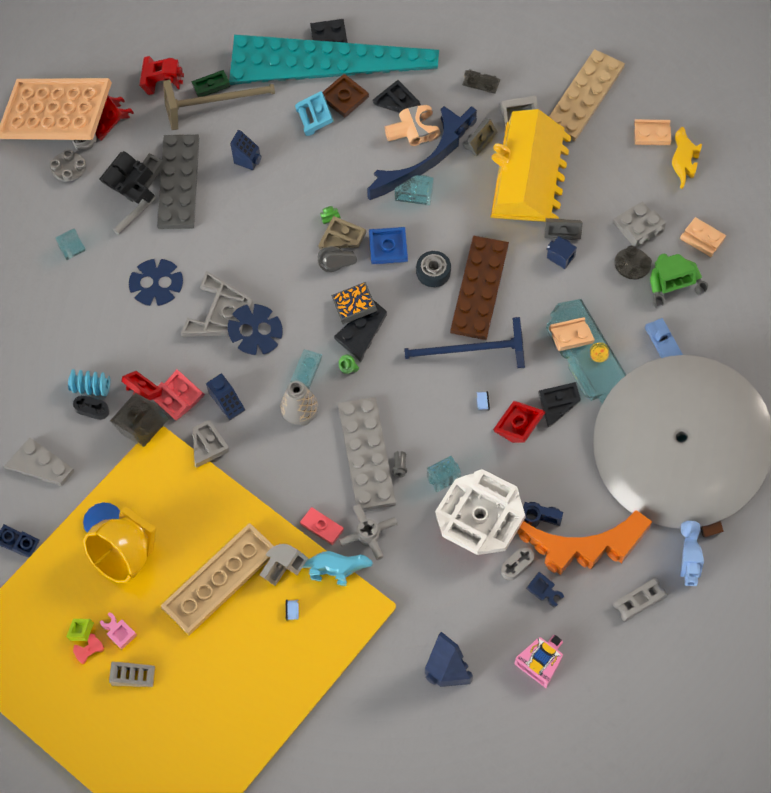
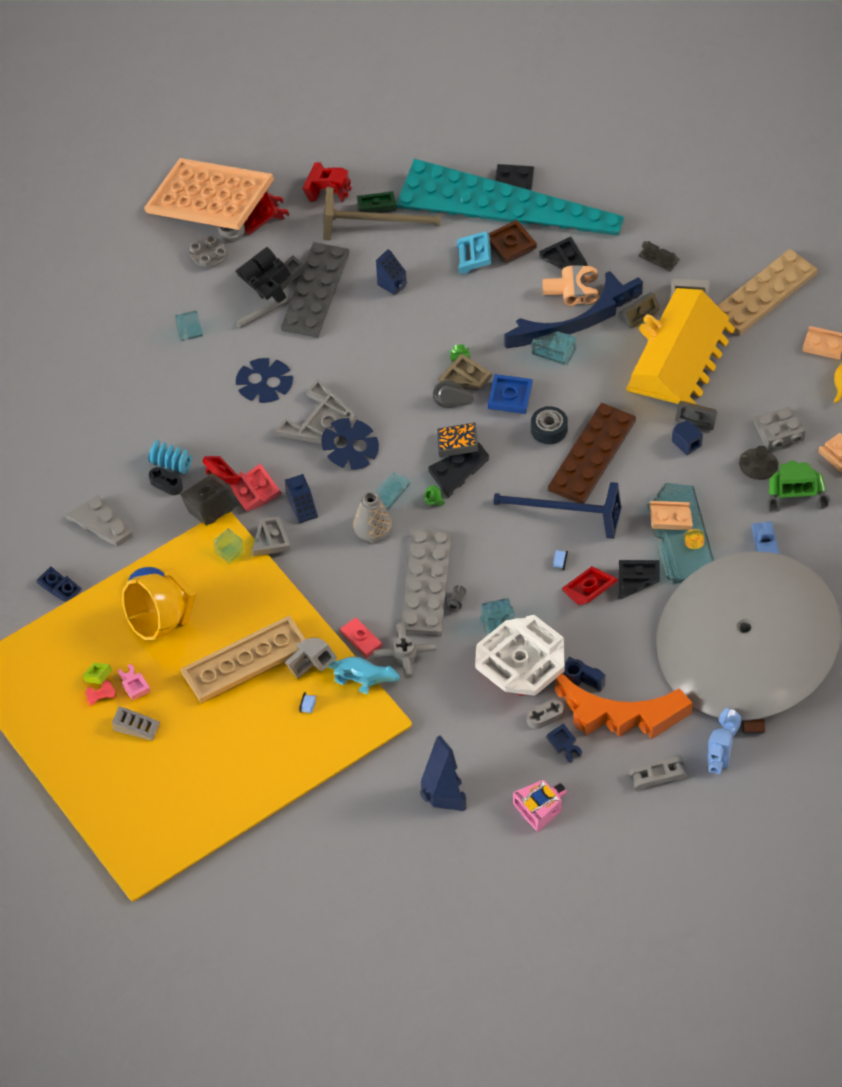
camera: 15 degrees right, 10 degrees down
(171, 464) = (229, 546): none -> clear light blue panel

